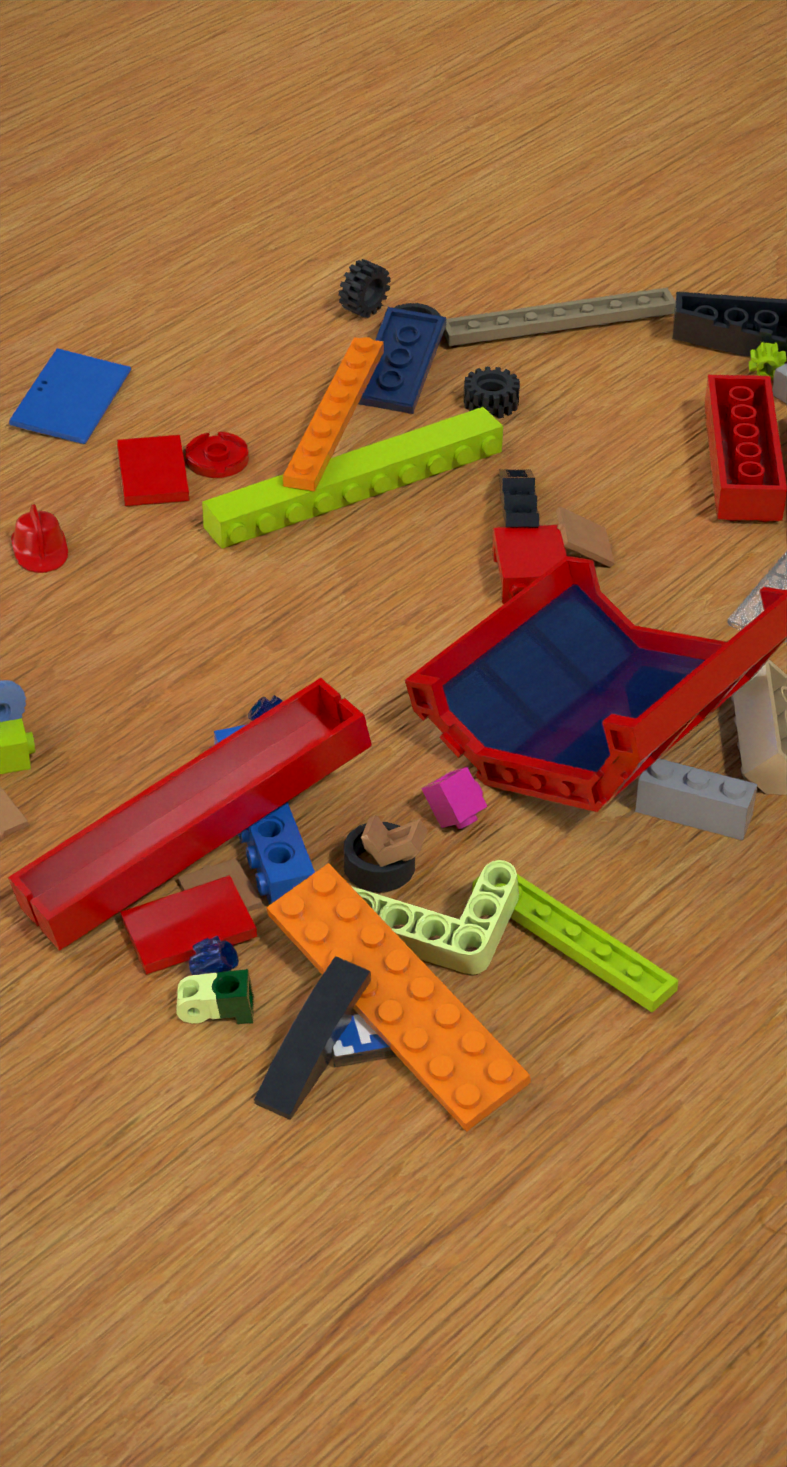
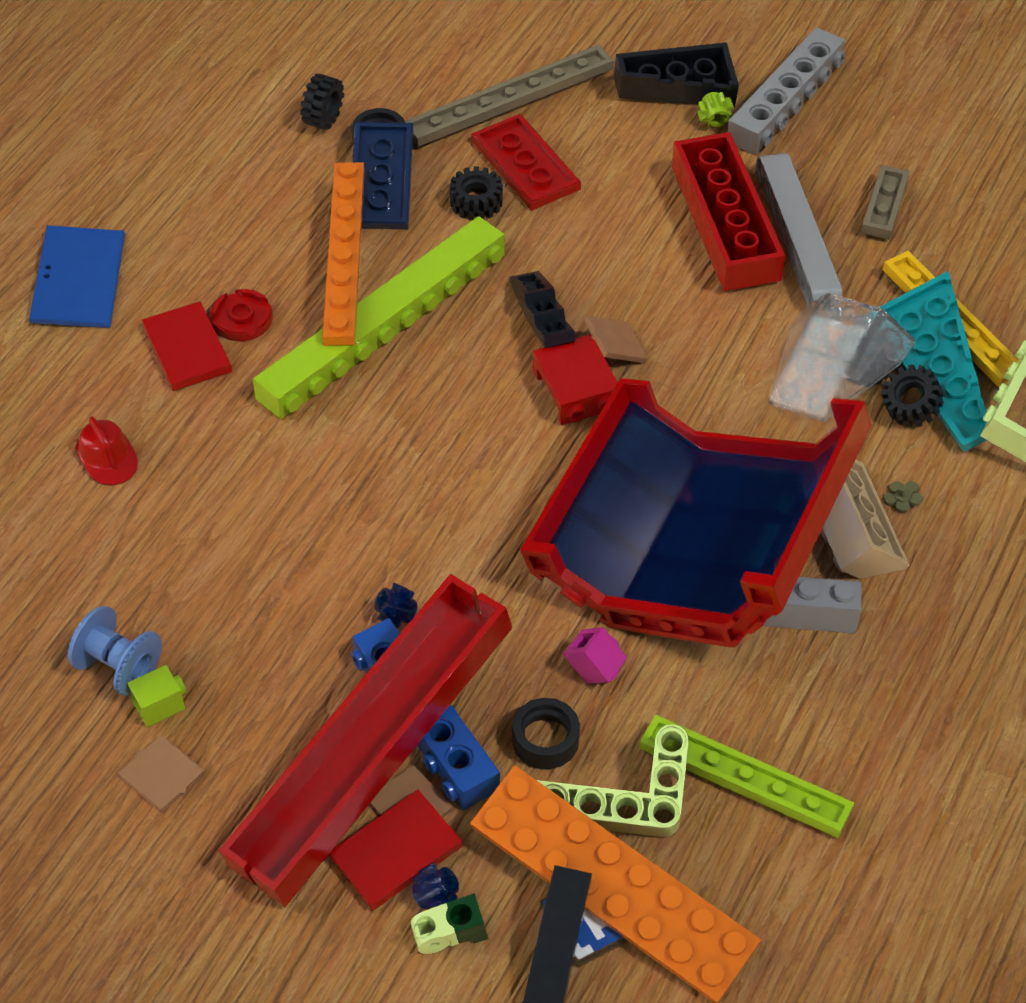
camera: 15 degrees left, 10 degrees up
(393, 845) = (562, 724): medium nougat bracket -> none
(554, 376) = (526, 162): none -> red tile

